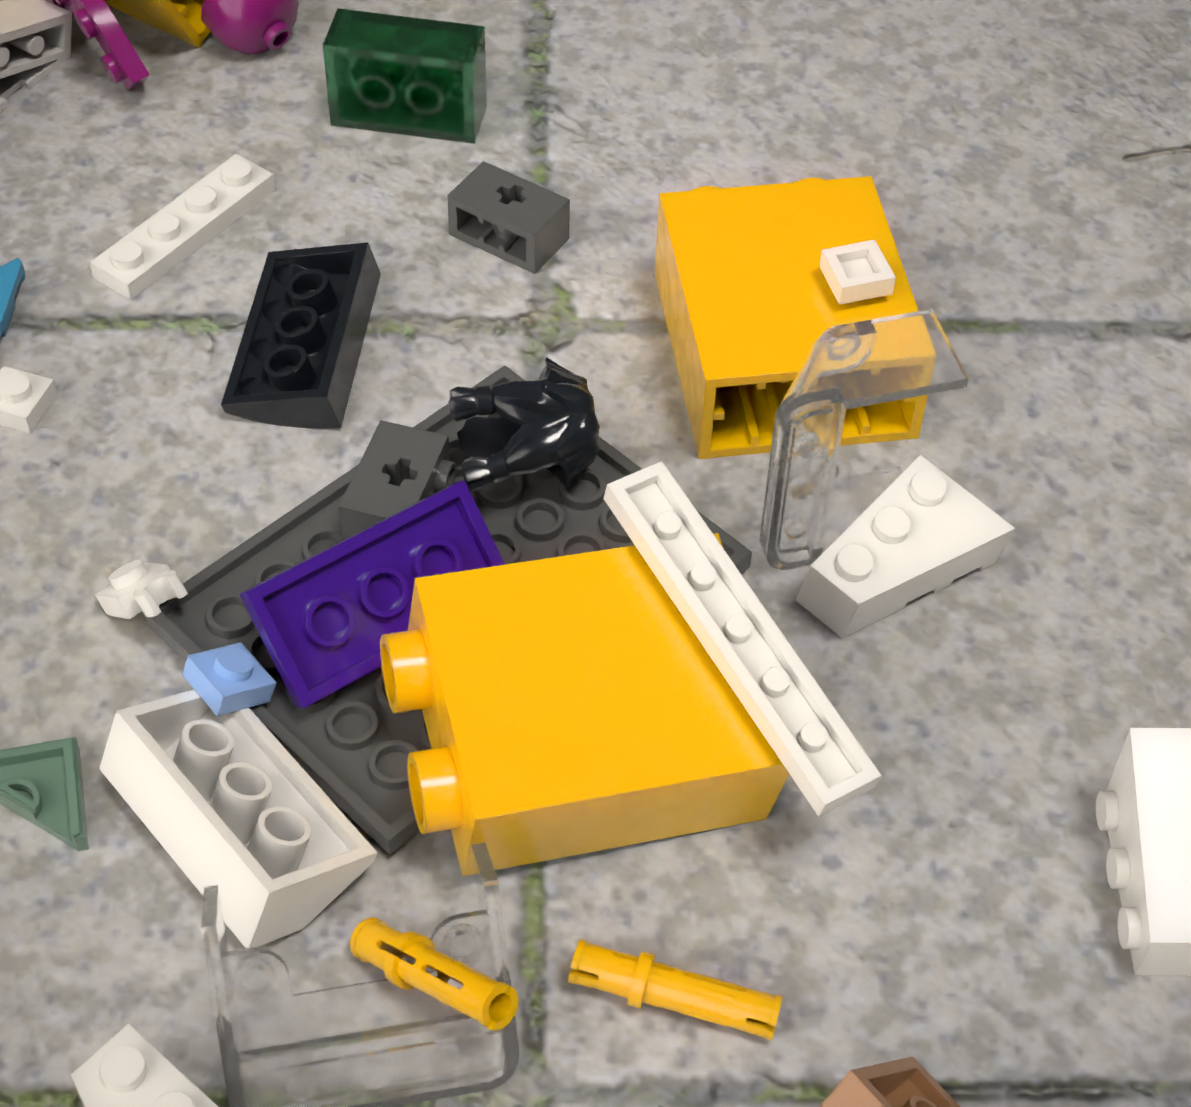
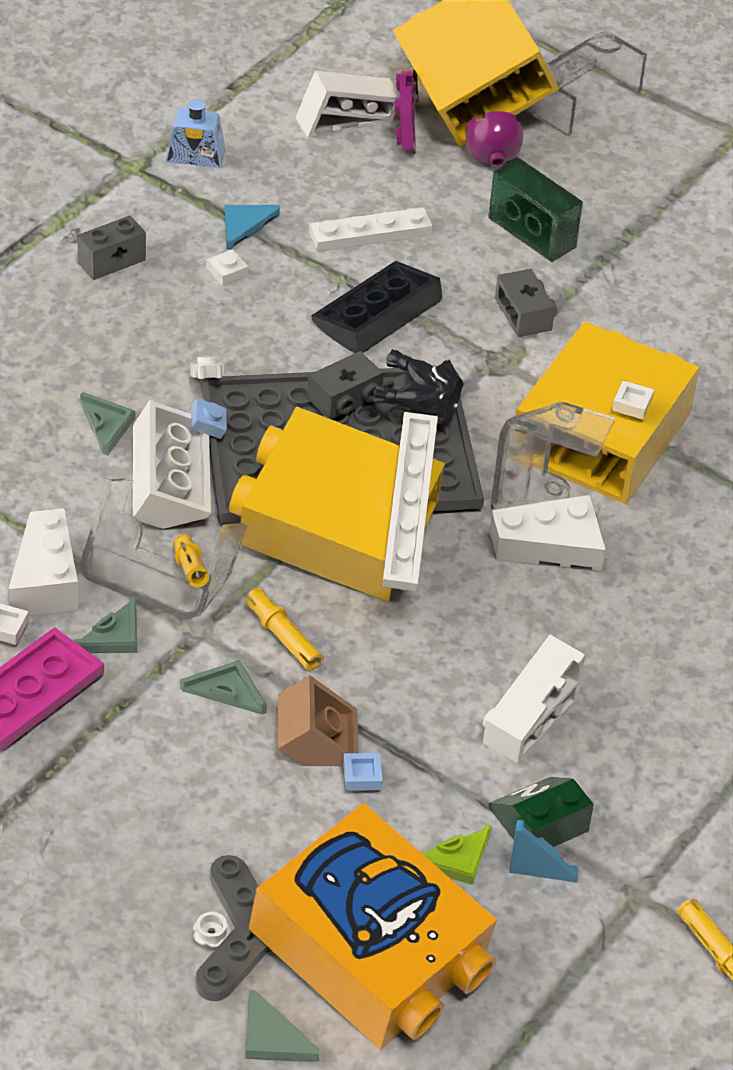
camera: 35 degrees right, 5 degrees down
(331, 609) = (266, 404): dark purple plate -> none

